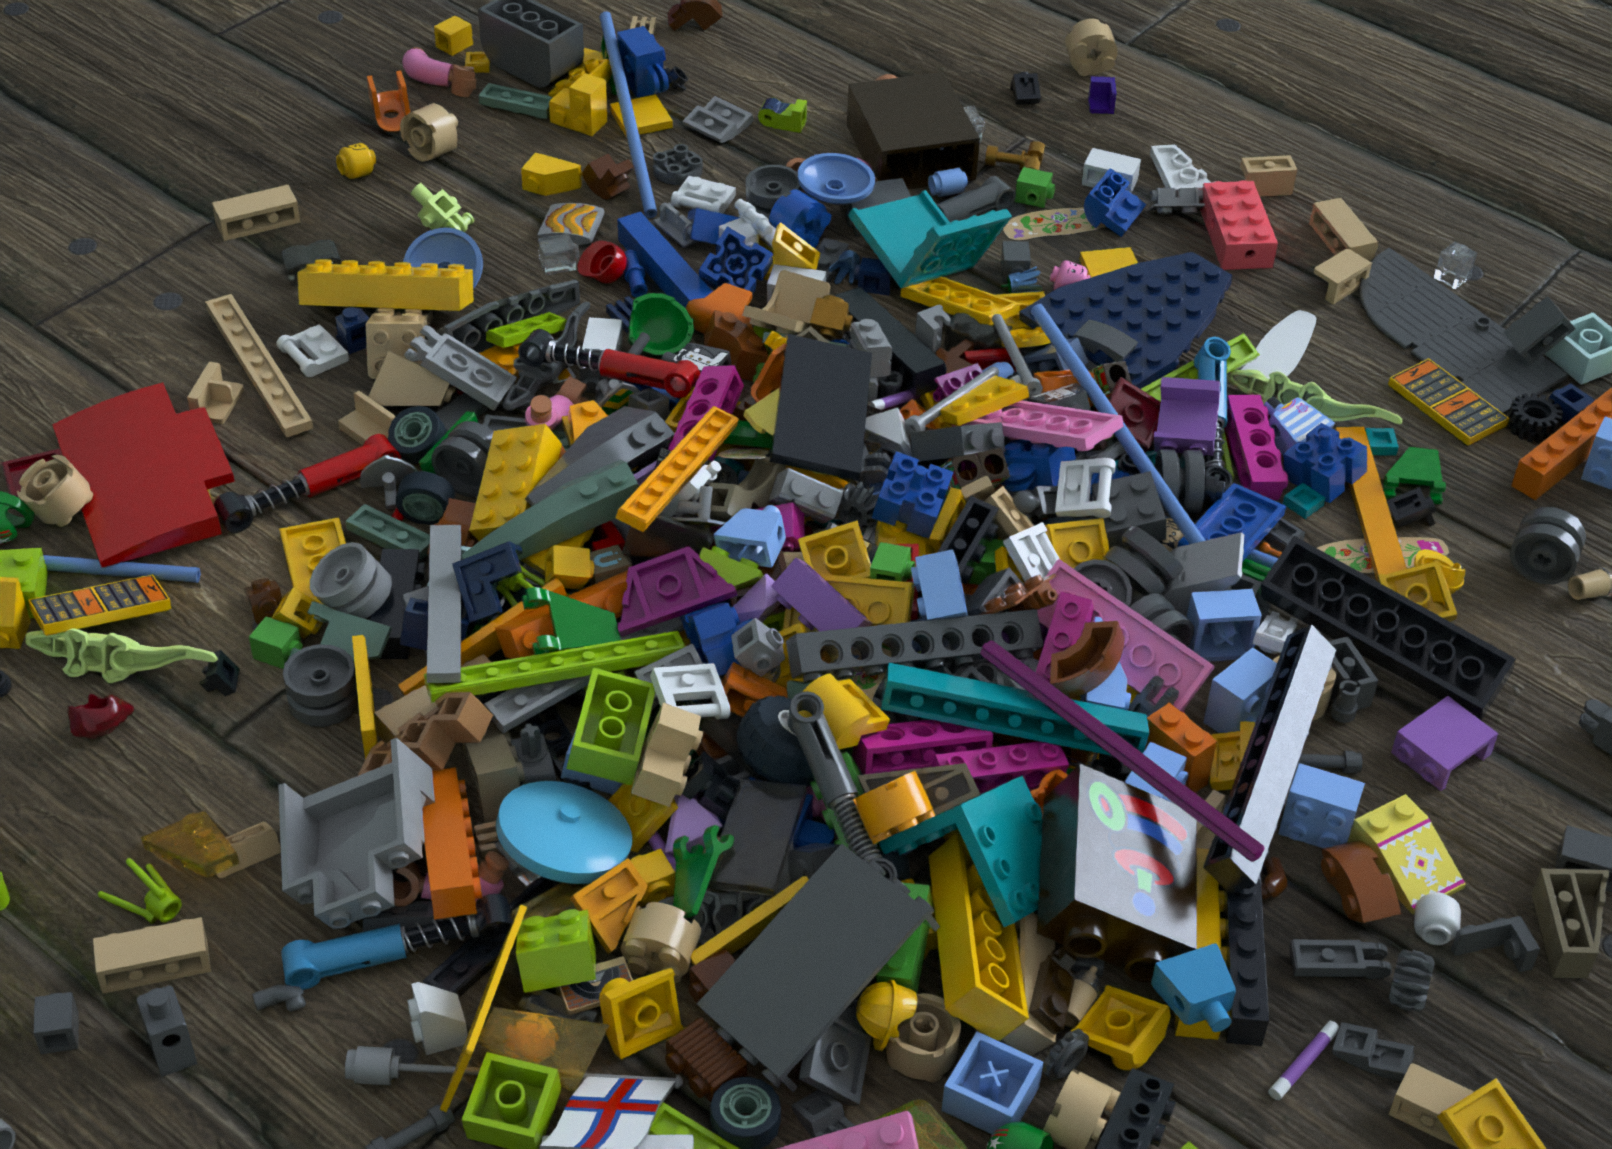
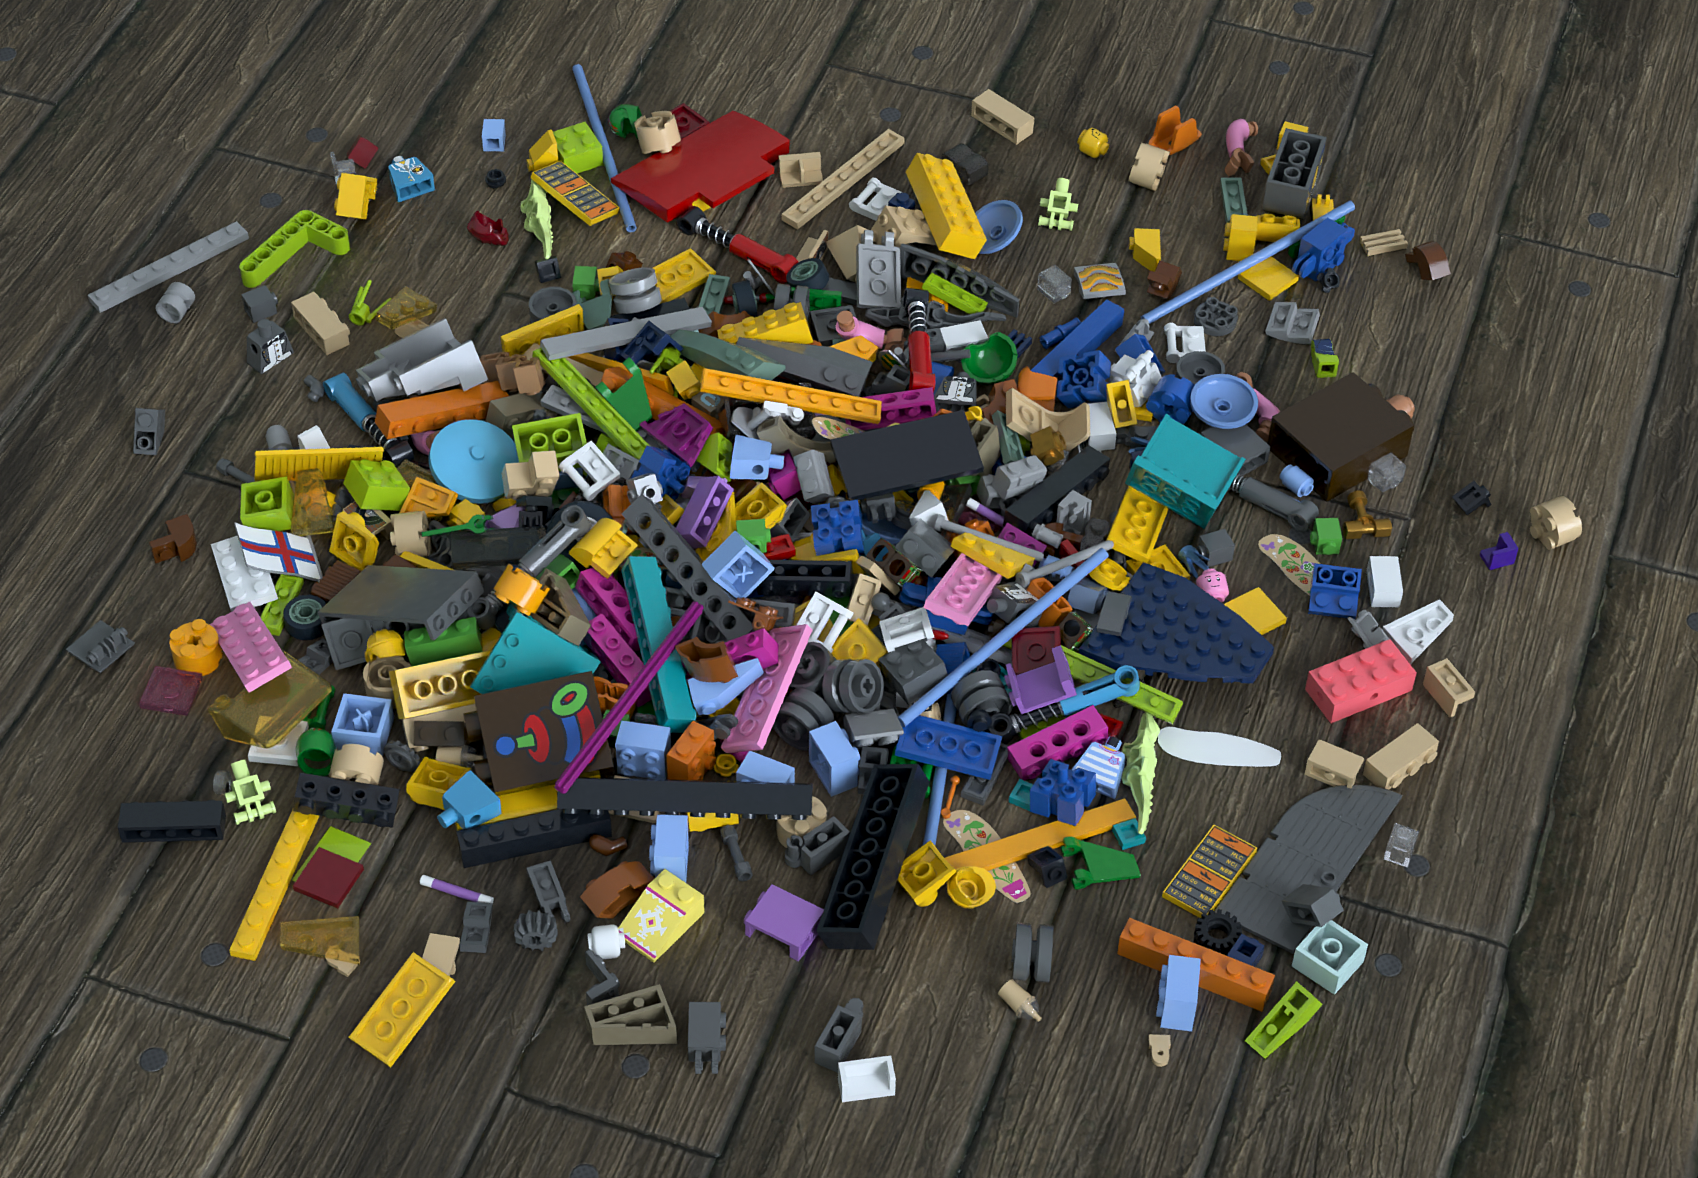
camera: 70 degrees right, 5 degrees up
(602, 262) = (1058, 313): red cap -> none
(961, 359) = (1046, 535): none -> light grey pin
(1273, 633) = (838, 791): white hinge -> none

